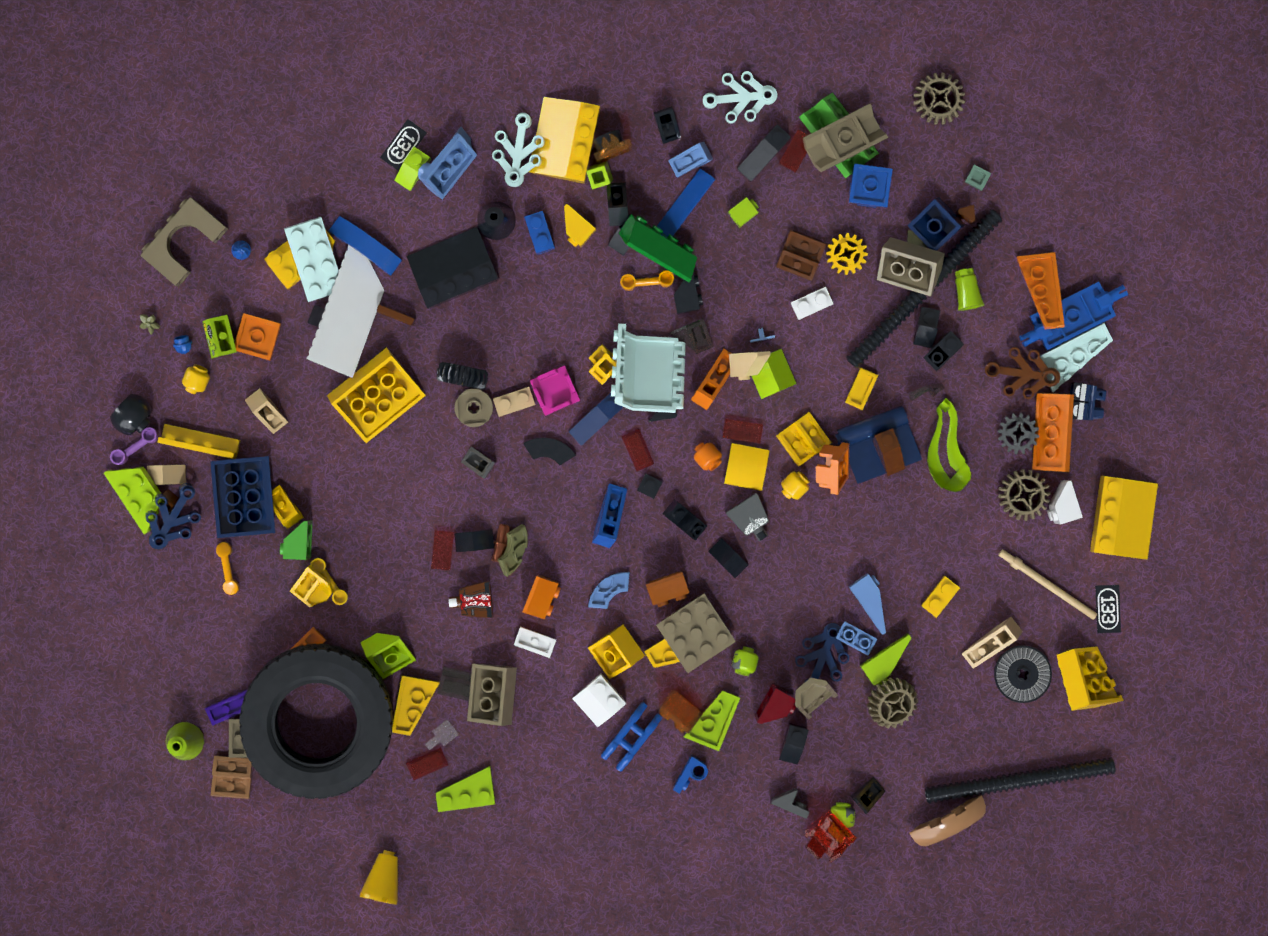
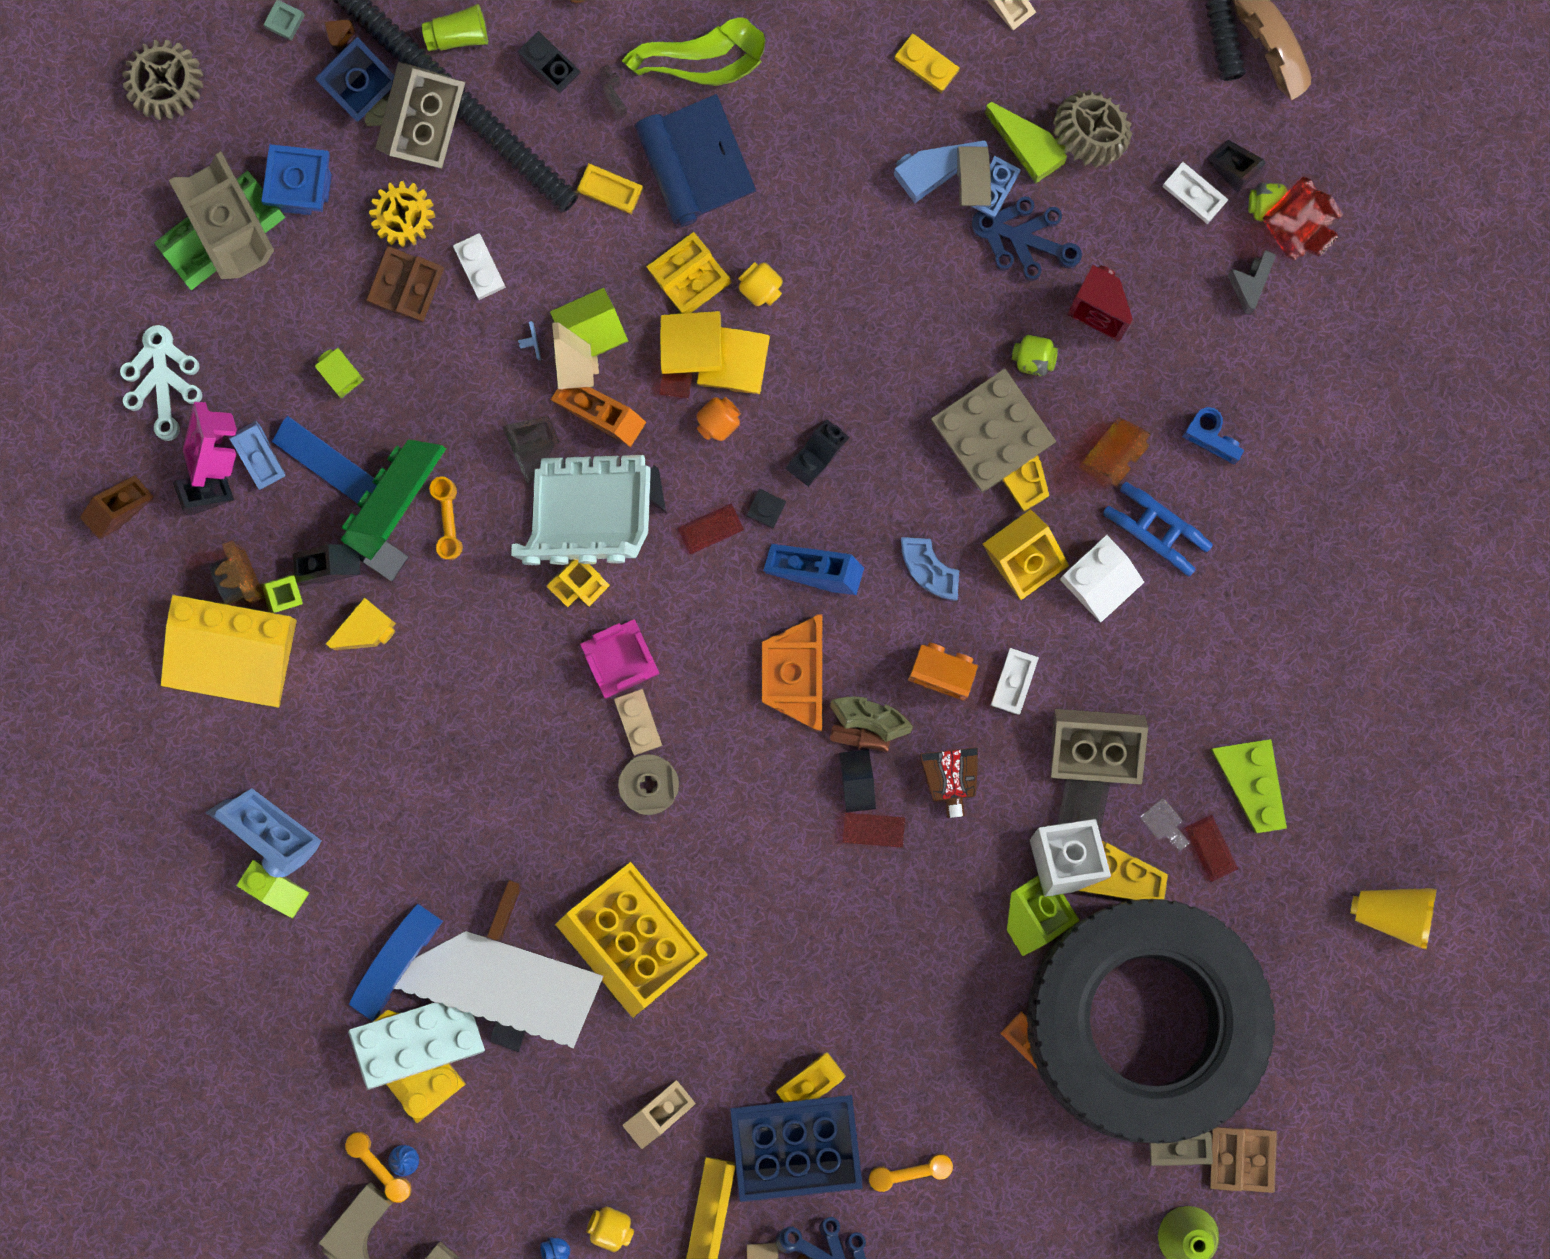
camera: 90 degrees left, 5 degrees down
(219, 336) = (541, 1191): lime brick -> none
(226, 708) = (1133, 1169): dark purple tile -> none
(250, 221) = (358, 1146): none -> light orange bar
(257, 336) = (541, 1132): orange plate -> none
(298, 542) = (867, 1057): bright green slope -> none
(312, 587) = (938, 1035): yellow slope -> none
(339, 596) = (950, 991): yellow bar -> none
(408, 137) = (236, 905): black sticker -> none
(421, 673) = (1069, 857): none -> white slope
(452, 268) = (429, 822): black slope -> none
(462, 375) = (597, 801): black gear -> none
(478, 462) = (734, 775): dark grey slope -> none
(498, 228) = (365, 756): black cone -> none
(518, 152) = (247, 722): light aqua plant -> none
(539, 232) = (372, 686): blue brick -> none
(543, 502) = (795, 672): none -> orange wing
(549, 448) = (710, 665): black tile -> none
(595, 419) = (663, 592): dark blue slope -> none
(659, 68) = (115, 506): none -> reddish brown slope
(667, 588) = (924, 475): dark orange slope -> none
(686, 296) = (470, 456): black slope -> none
(696, 124) = (200, 455): none -> dark pink panel
(715, 721) = (1129, 399): lime wing -> none
(728, 558) = (874, 385): black slope -> none
(750, 517) = (810, 352): dark grey torso -> none
(757, 439) = (691, 342): none -> yellow slope
(764, 152) = (246, 342): black slope -> none
(793, 743) = (1159, 278): black slope -> none
(795, 152) = (245, 295): clear red plate -> none
(812, 695) = (1084, 242): dark tan piece -> none
(836, 470) = (735, 224): orange panel -> none
(850, 768) = (1195, 192): none -> white plate
(861, 625) = (974, 176): none -> dark tan slope
(889, 452) = (704, 139): reddish brown slope -> none
(926, 327) = (514, 92): black slope -> none

